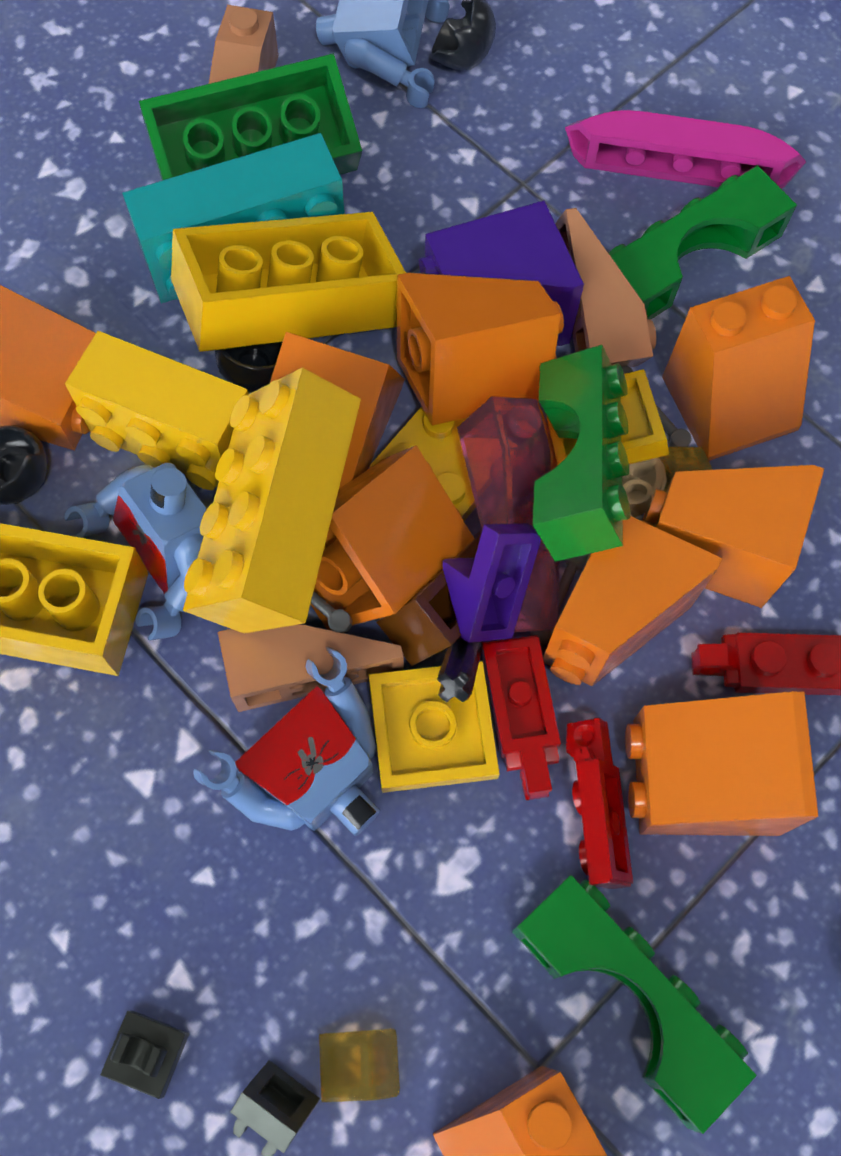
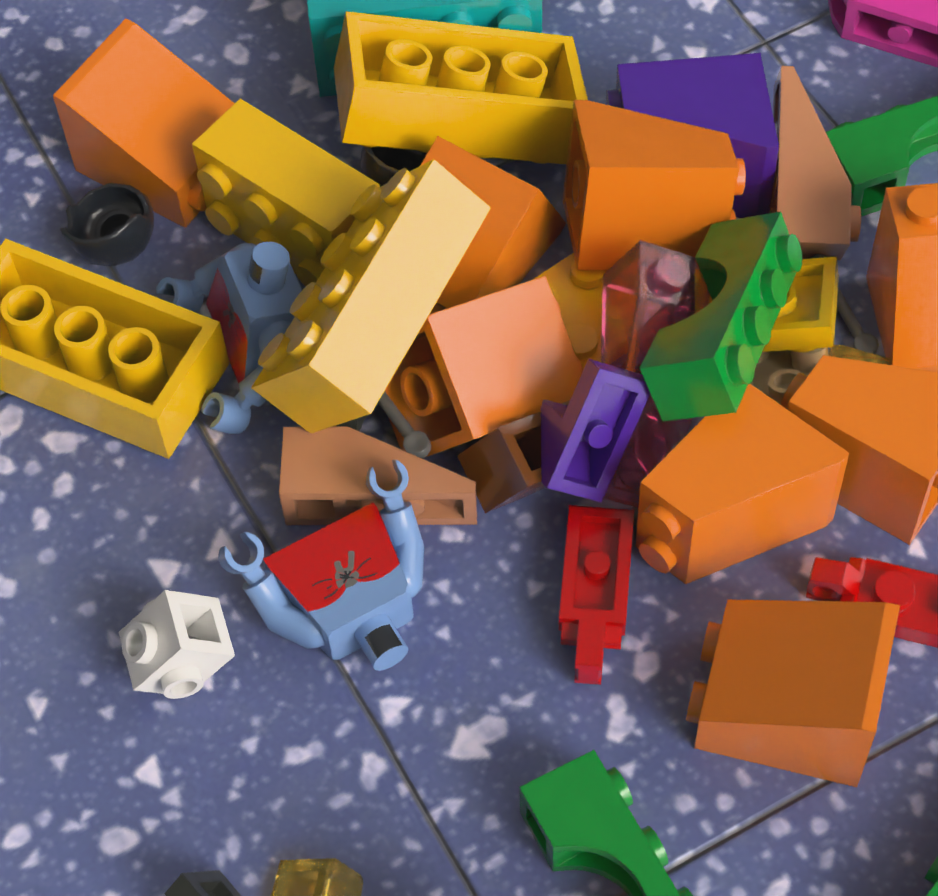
camera: 20 degrees right, 10 degrees down
(145, 1054) = (93, 832): pearl dark grey tile -> none
(174, 862) = (176, 644): none -> white brick
(427, 739) = (490, 580): yellow plate -> none
(459, 670) = (530, 506): black axle -> none
(599, 801) = (653, 701): red hinge -> none

